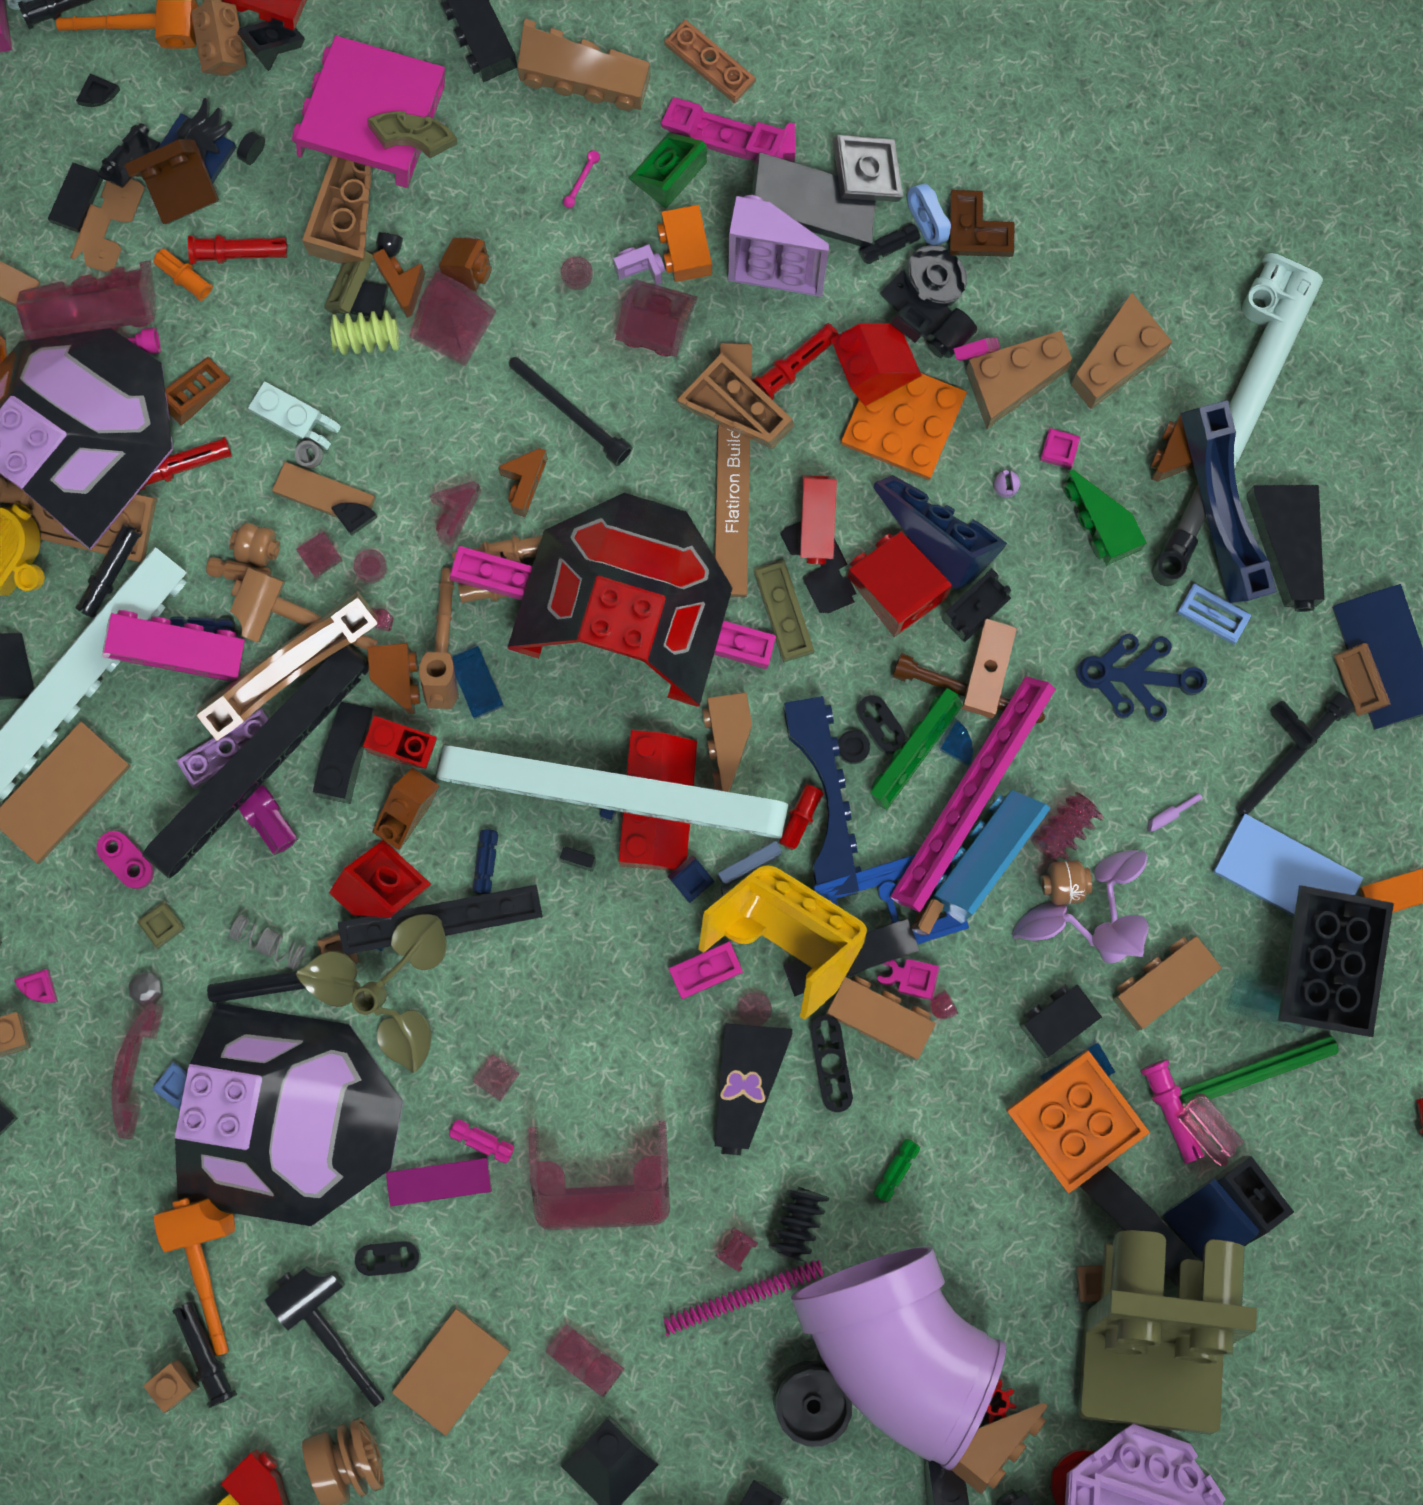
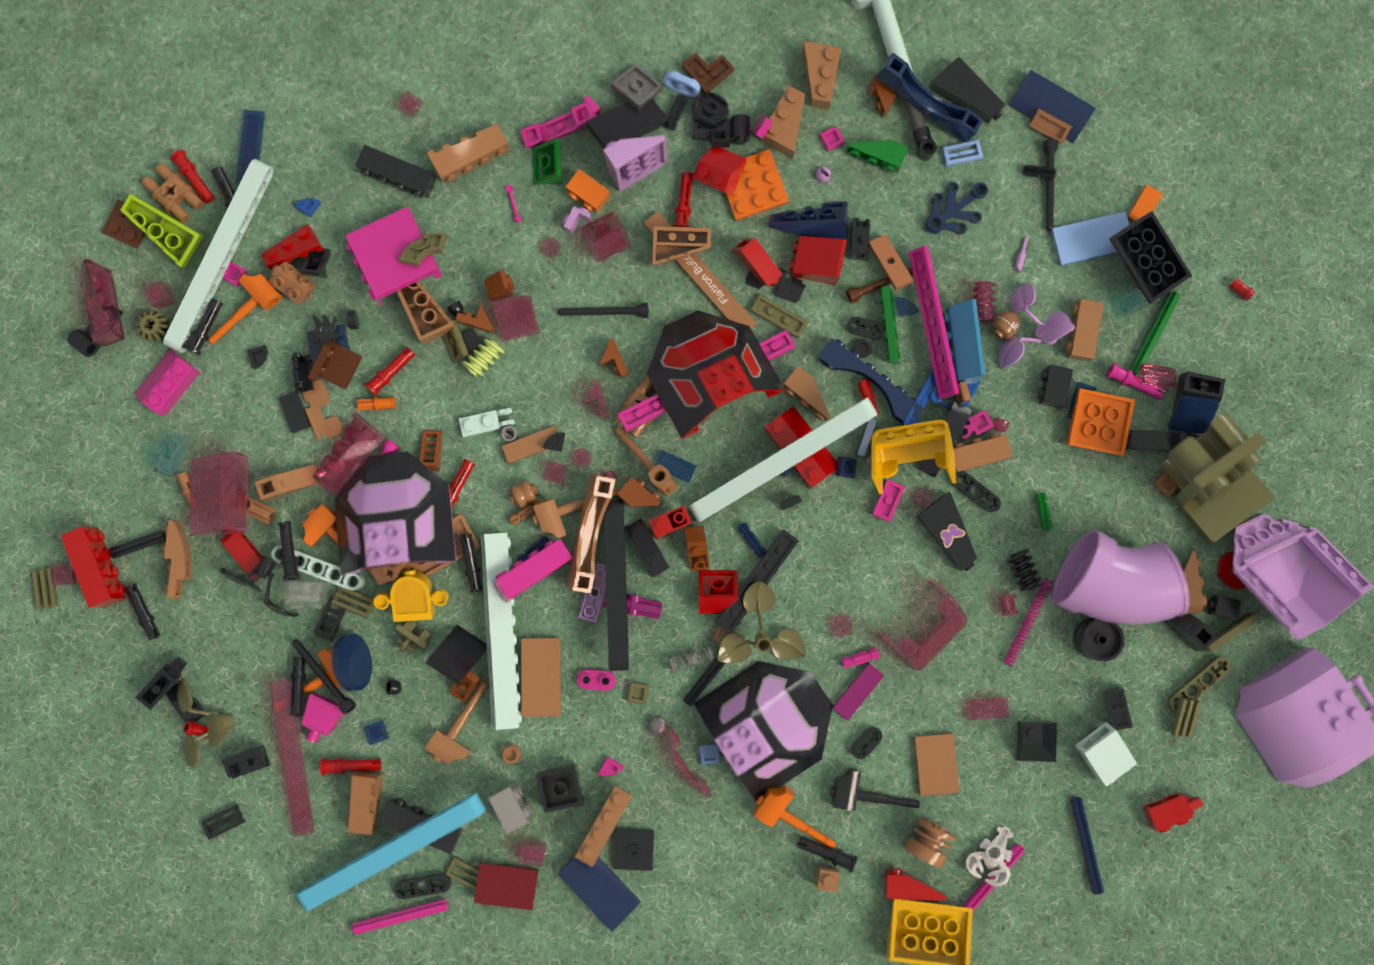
camera: 40 degrees left, 5 degrees up
(722, 73) = (532, 99): nougat tile -> none

